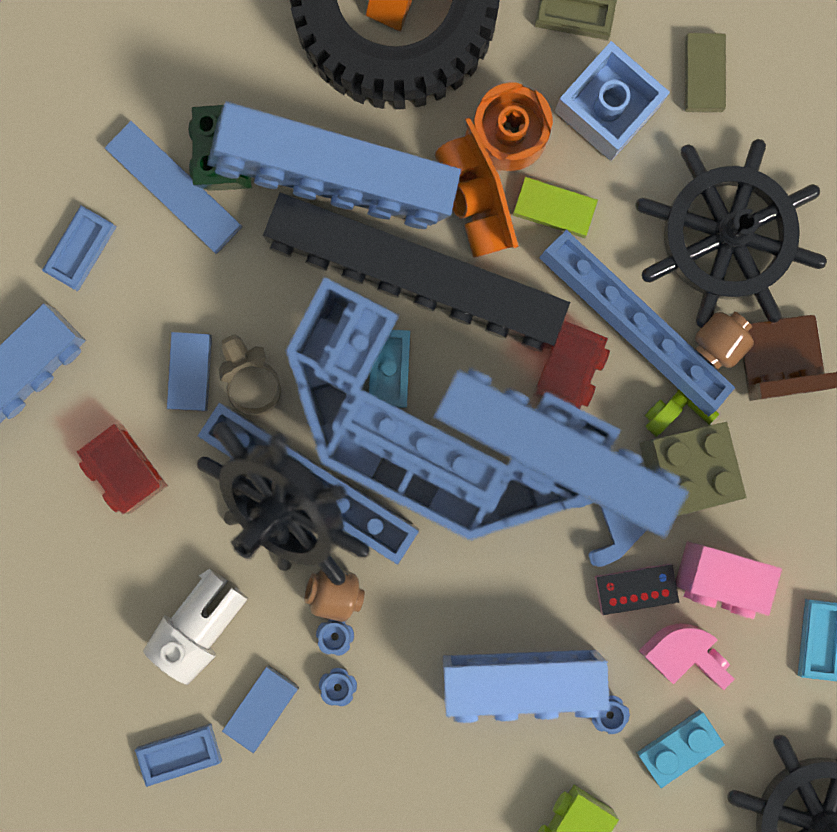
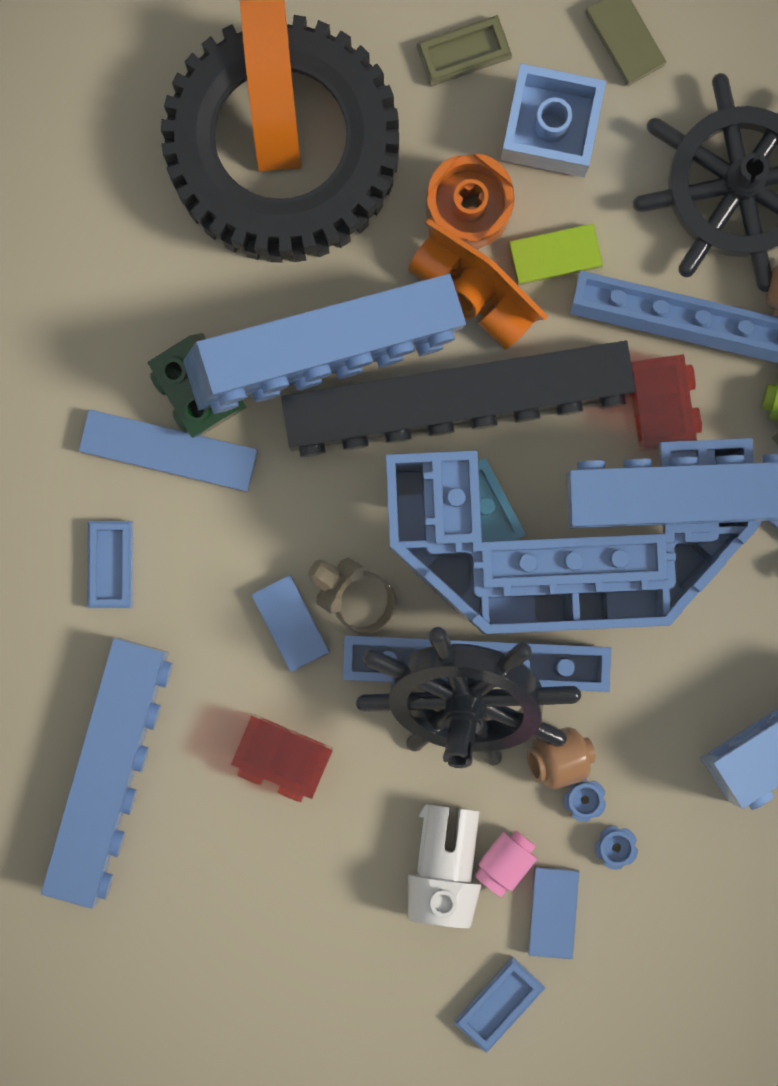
camera: 30 degrees left, 0 degrees up
(245, 650) = (506, 862): none -> bright pink brick

